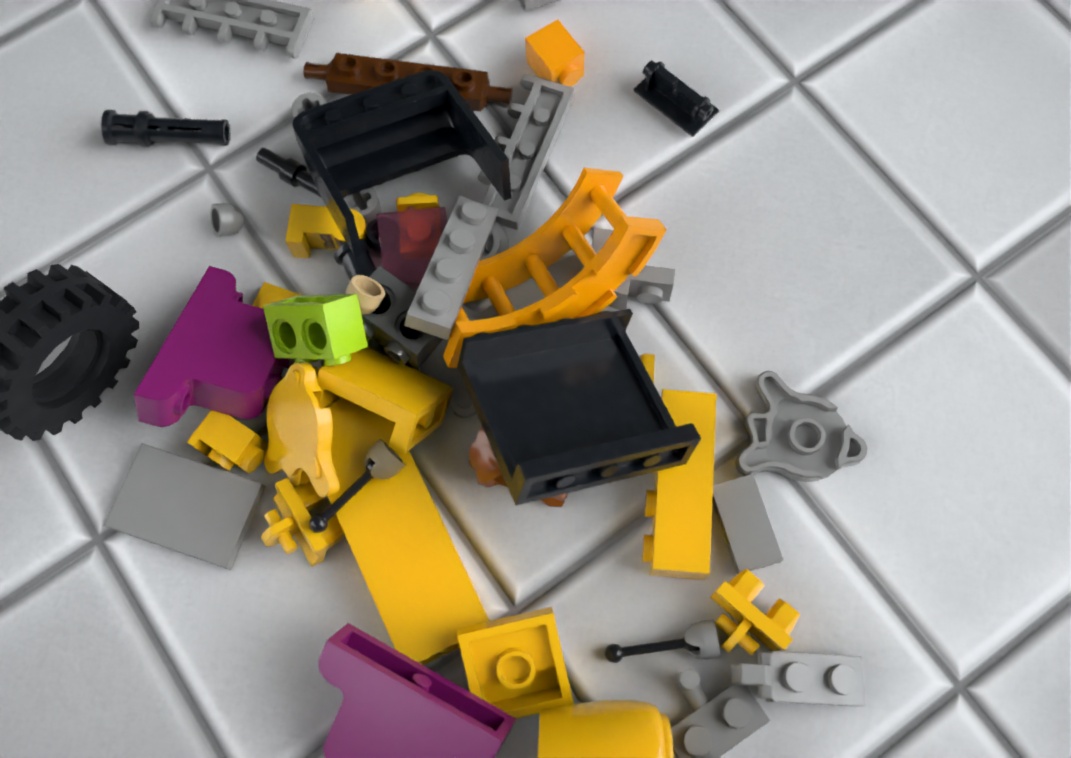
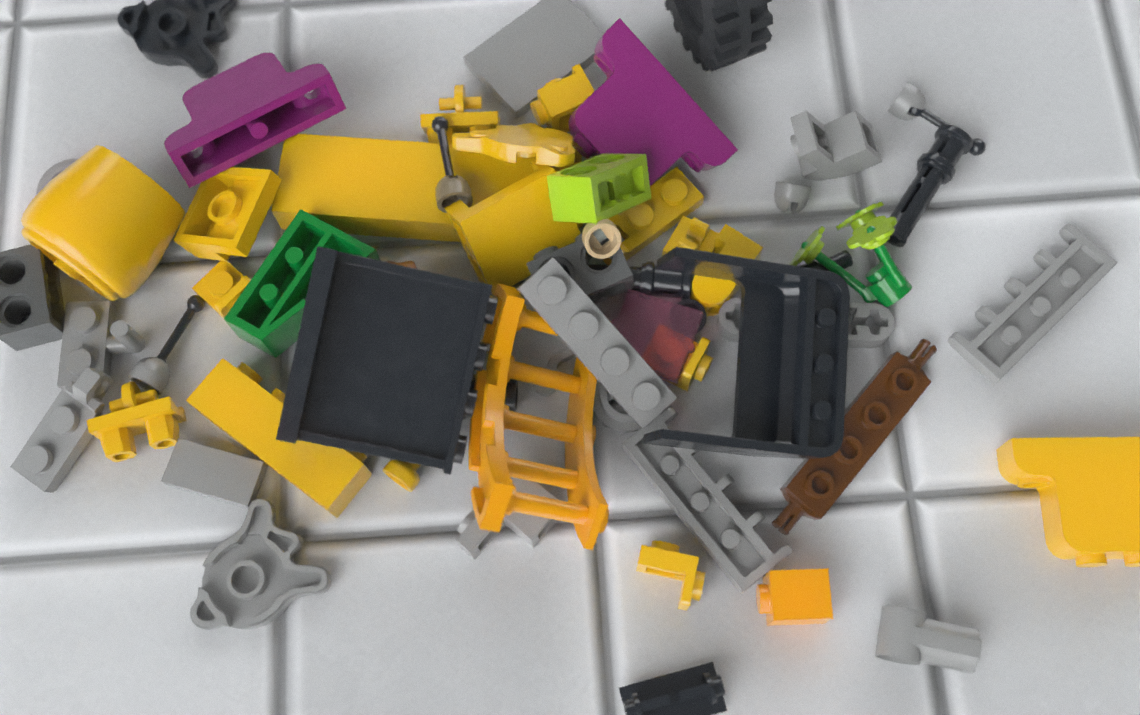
camera: 120 degrees right, 0 degrees up
(89, 175) = (911, 104): none -> light grey hinge
(165, 204) = (833, 148): none -> light grey brick
(264, 115) = (870, 232): none -> plant
(314, 272) = (692, 235): none -> yellow tile
(542, 553) = (275, 298): none -> green wedge
(585, 134) = (666, 561): none -> yellow bracket
(586, 626) = (221, 287): none -> yellow bracket

